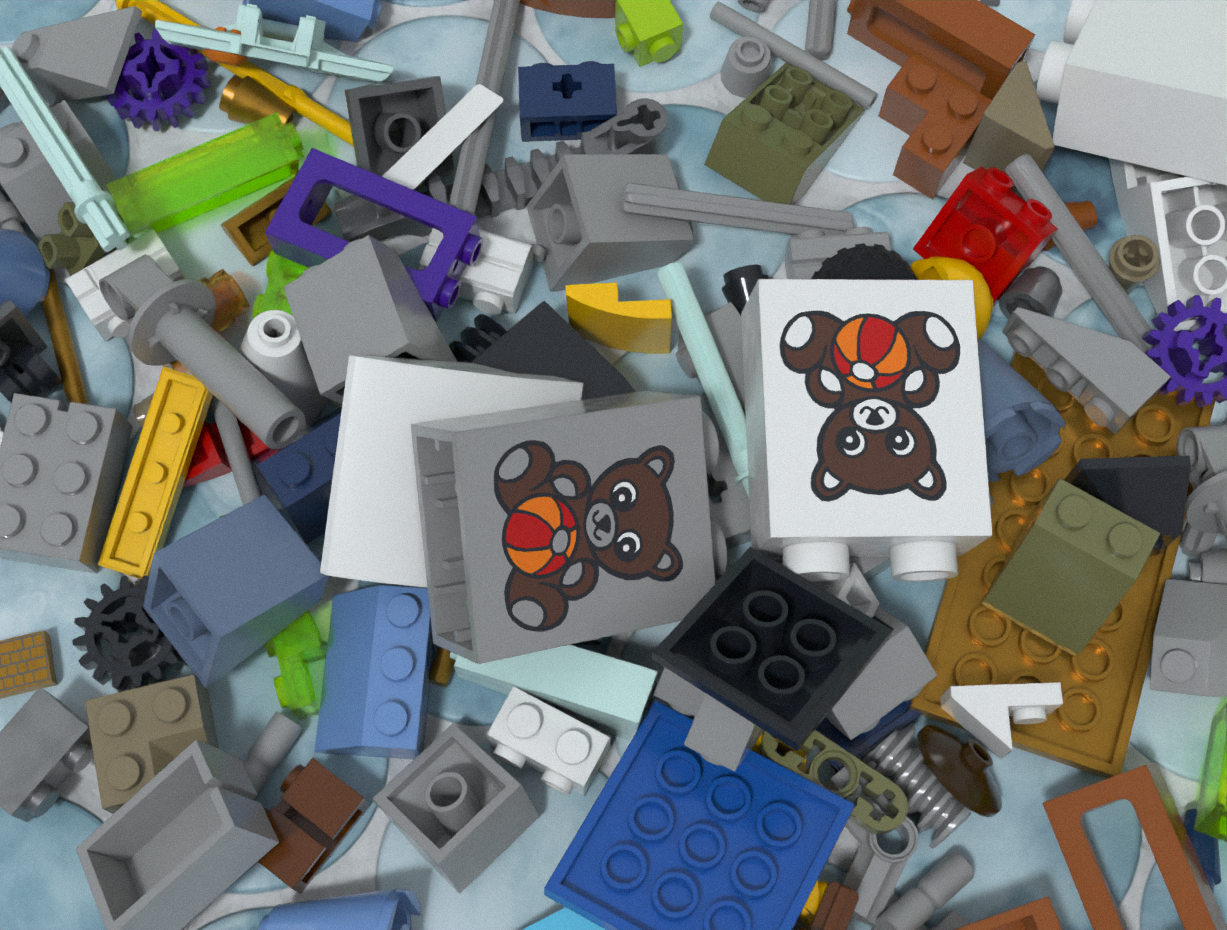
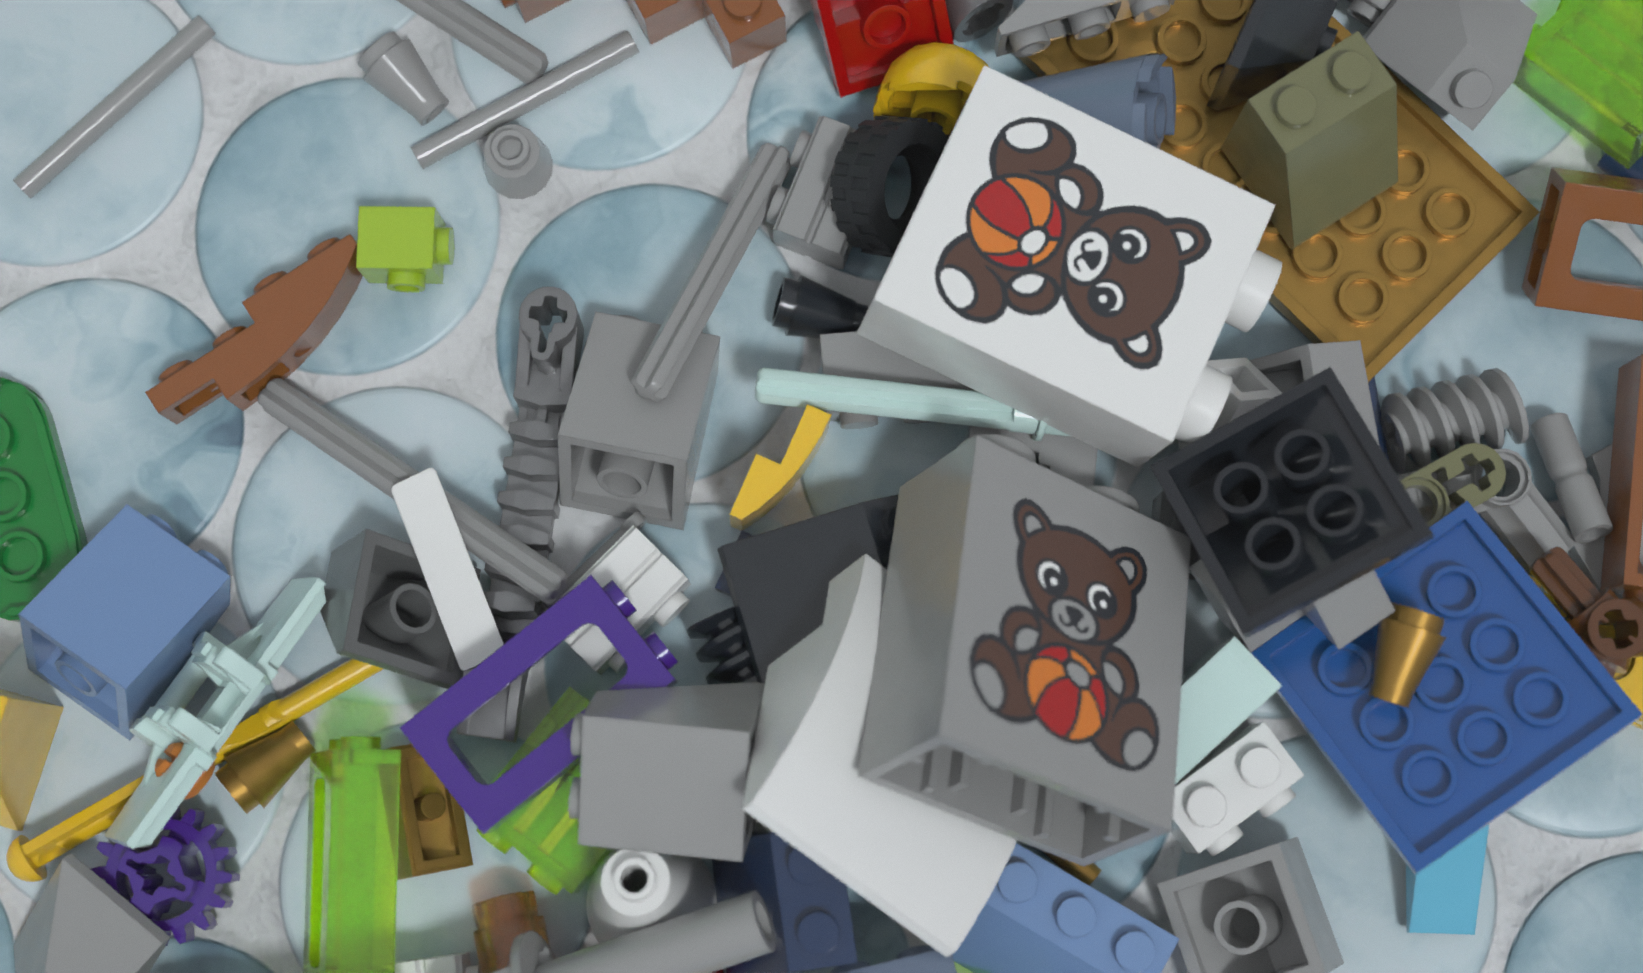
camera: 60 degrees left, 10 degrees up
(565, 99) = (458, 424): dark blue brick -> none
(708, 800) = (1404, 652): none -> pearl gold cone
(783, 135) = (630, 164): olive slope -> none
(961, 769) = (1462, 370): dark brown dish -> none
(987, 708) = (1417, 305): white slope -> none

